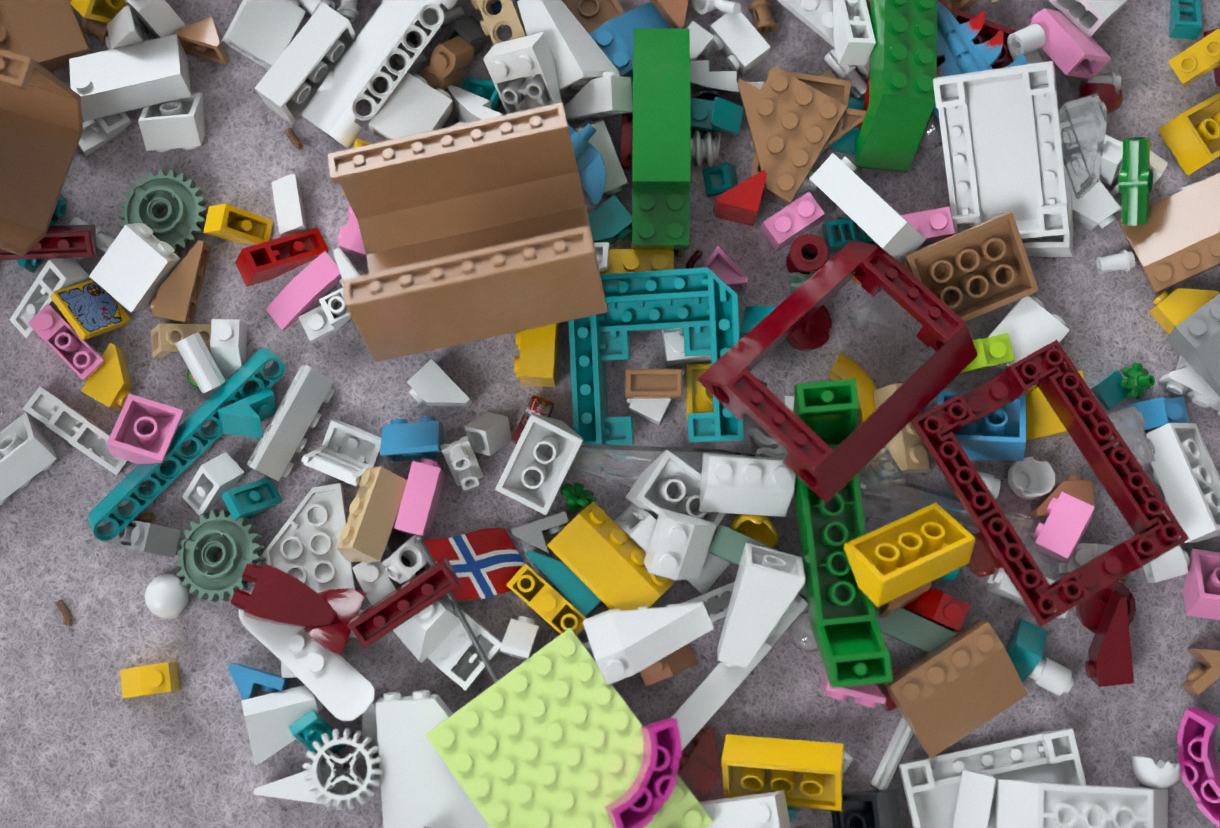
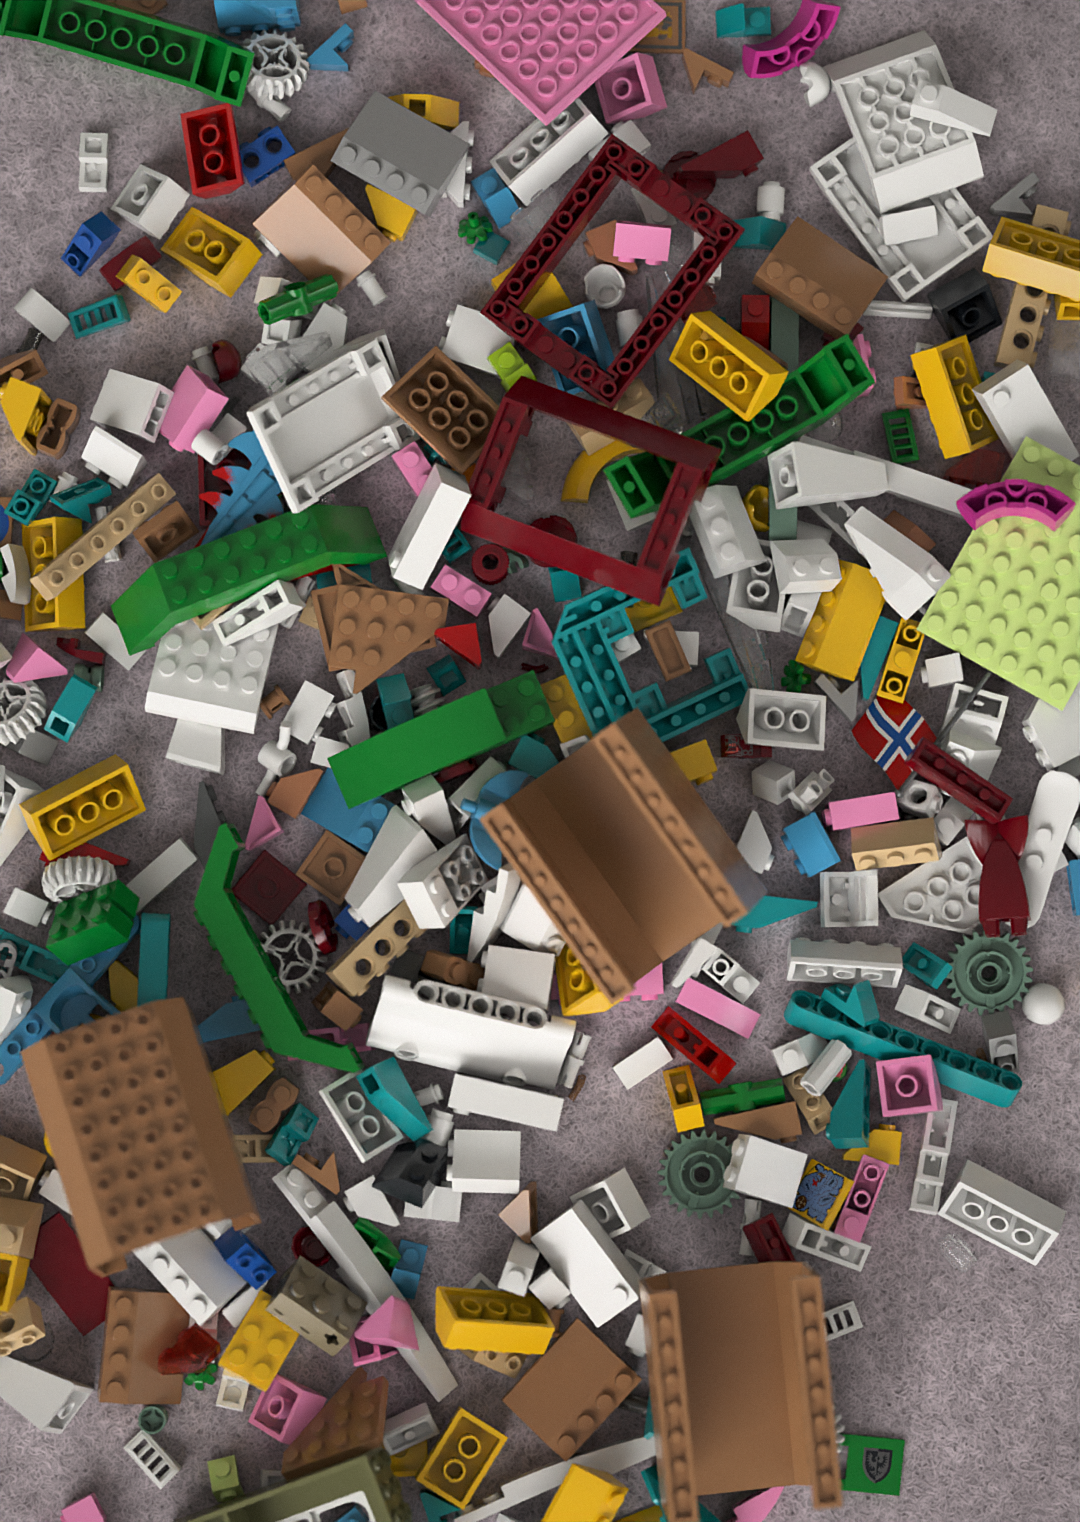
camera: 120 degrees left, 5 degrees up
(147, 367) = (851, 1111): none -> teal slope
(214, 279) = (742, 1096): none -> green piece
(318, 143) = (573, 1059): none -> white pin
(370, 381) = (771, 910): none -> teal slope
(742, 698) = (905, 459): none -> green slope
(745, 249) = (505, 622): none -> white slope
(806, 726) = (908, 393): none -> nougat slope

